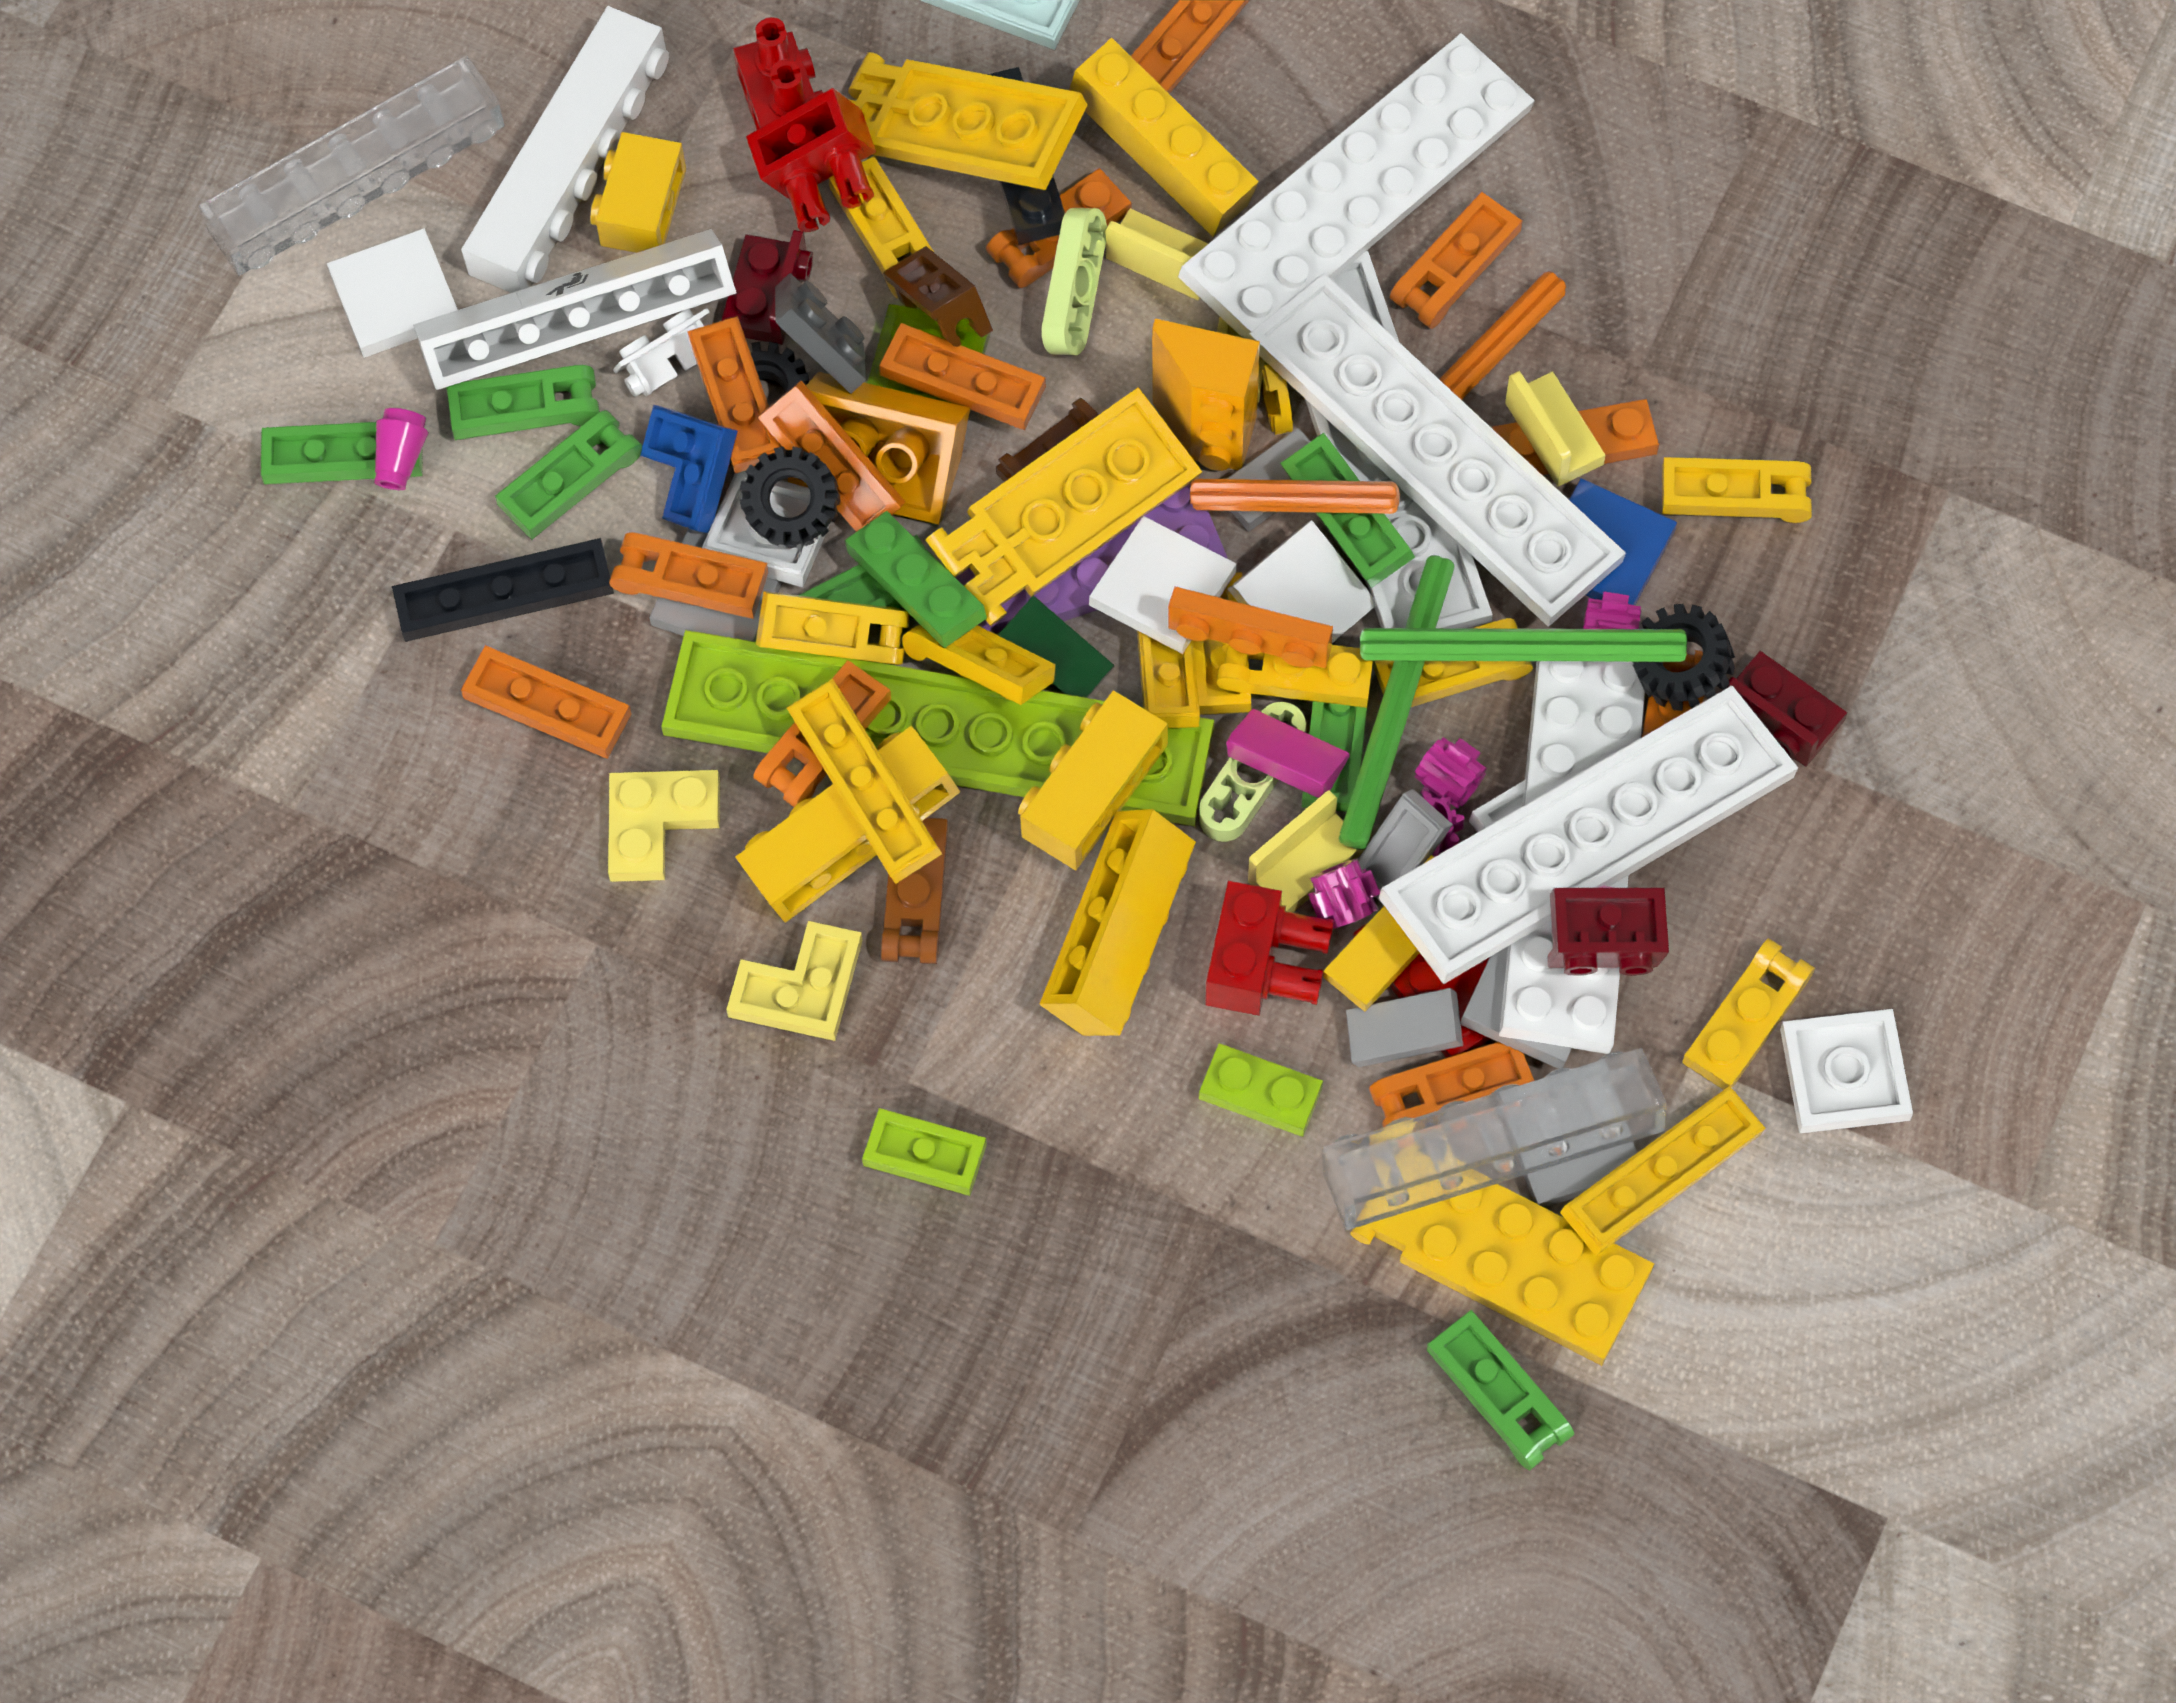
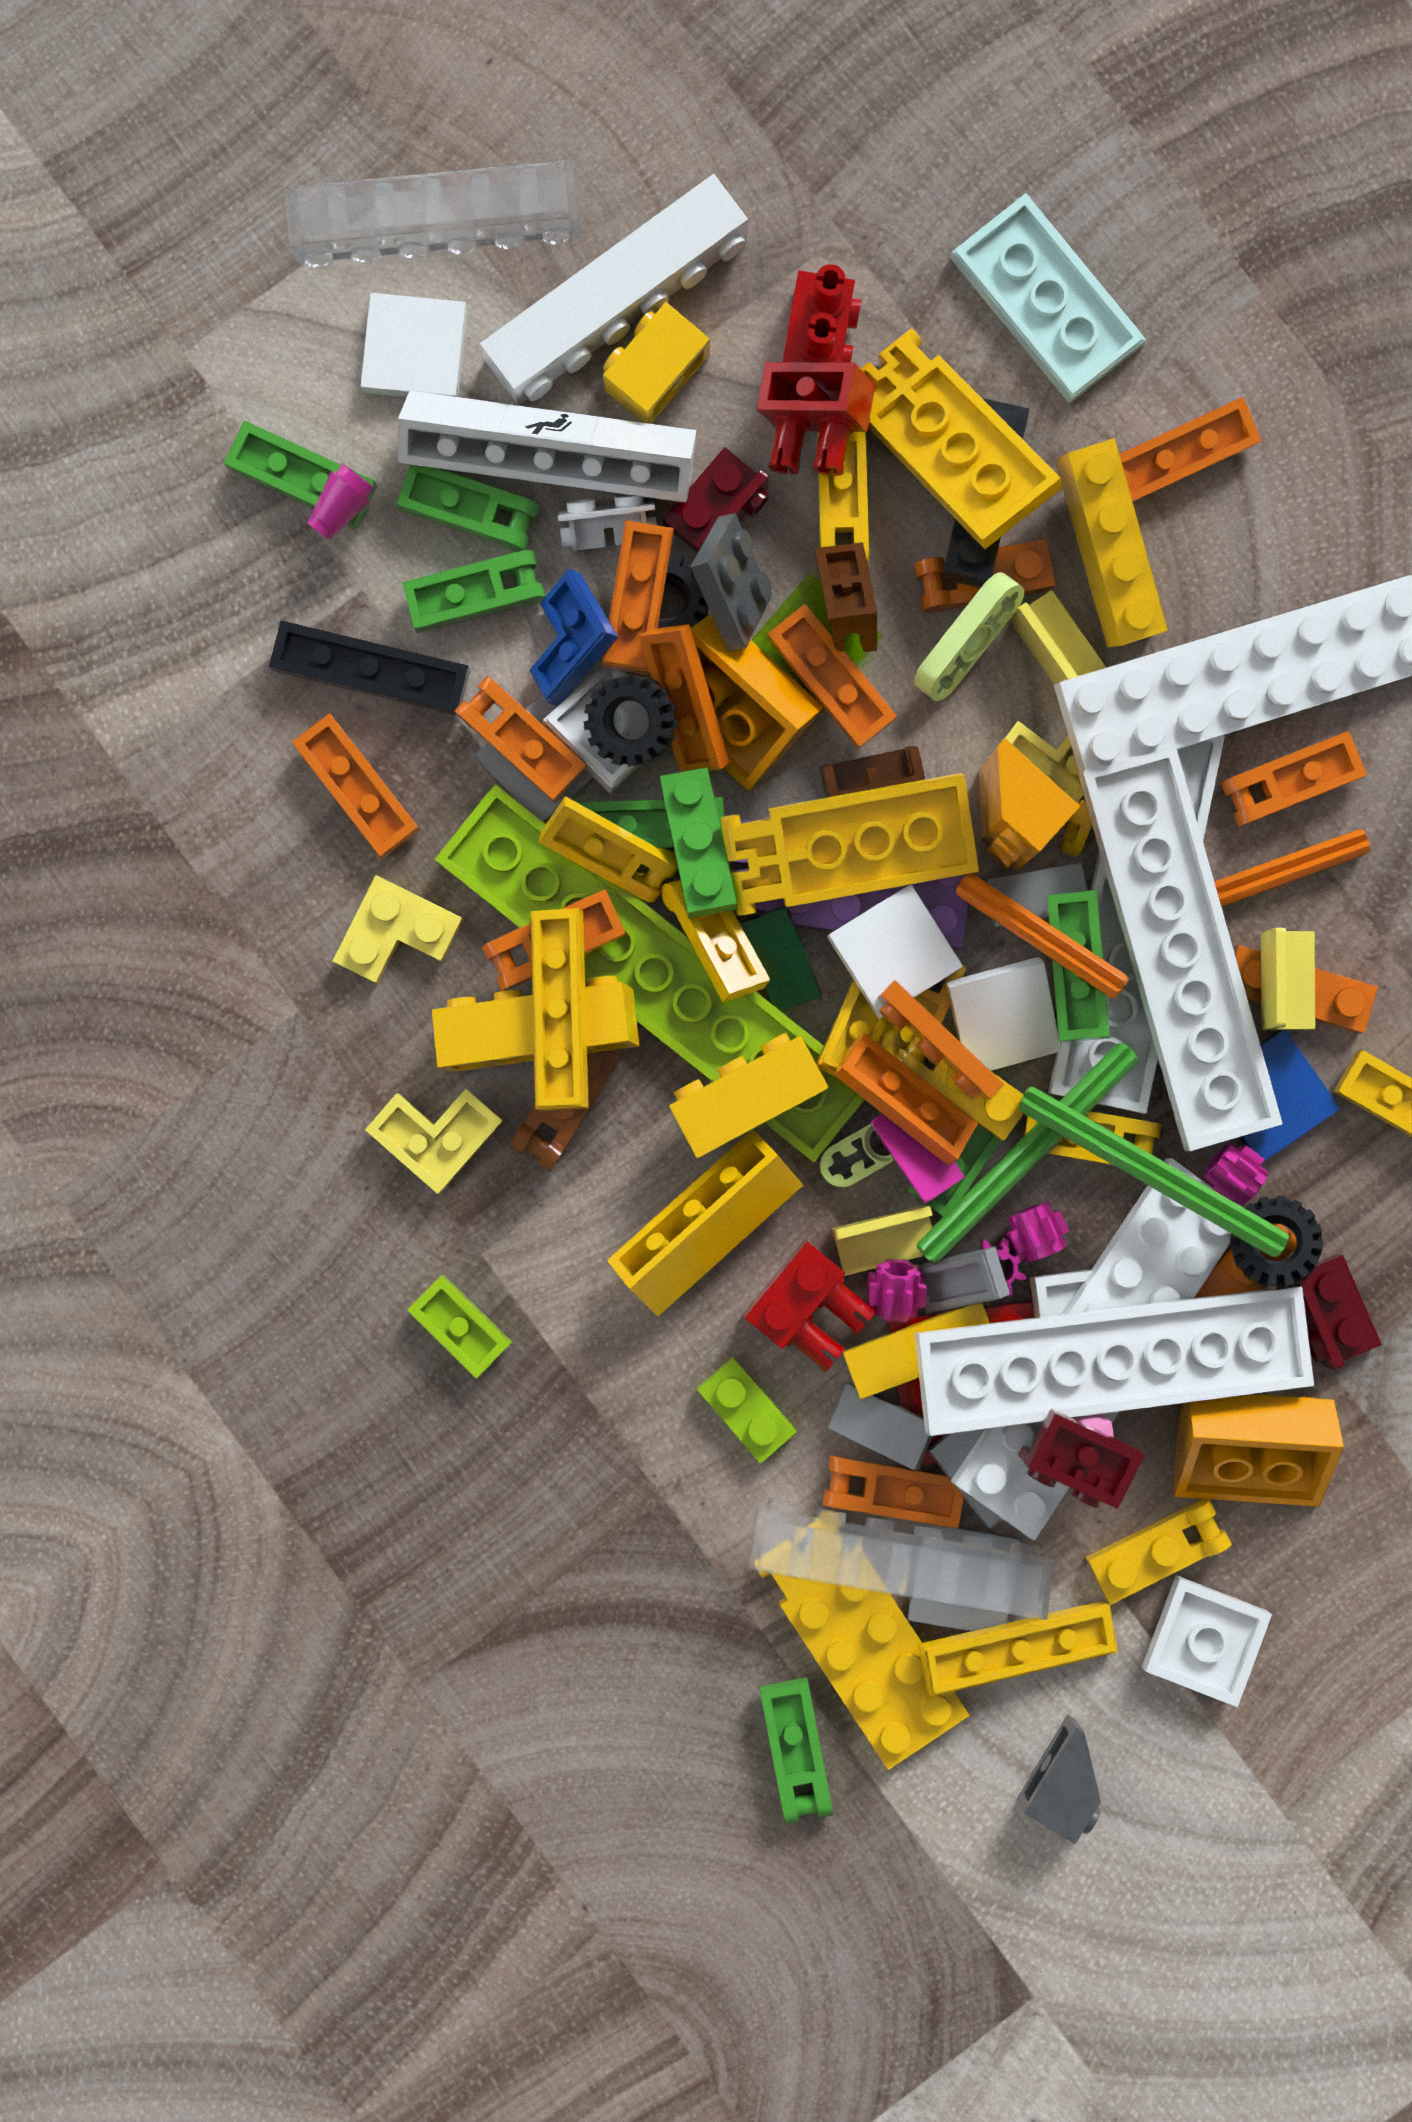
camera: 20 degrees right, 20 degrees up
(1249, 702) = (906, 1099): none -> orange plate
(1783, 867) = (1257, 1449): none -> light orange slope
(1789, 1279) = (1064, 1785): none -> flat silver slope

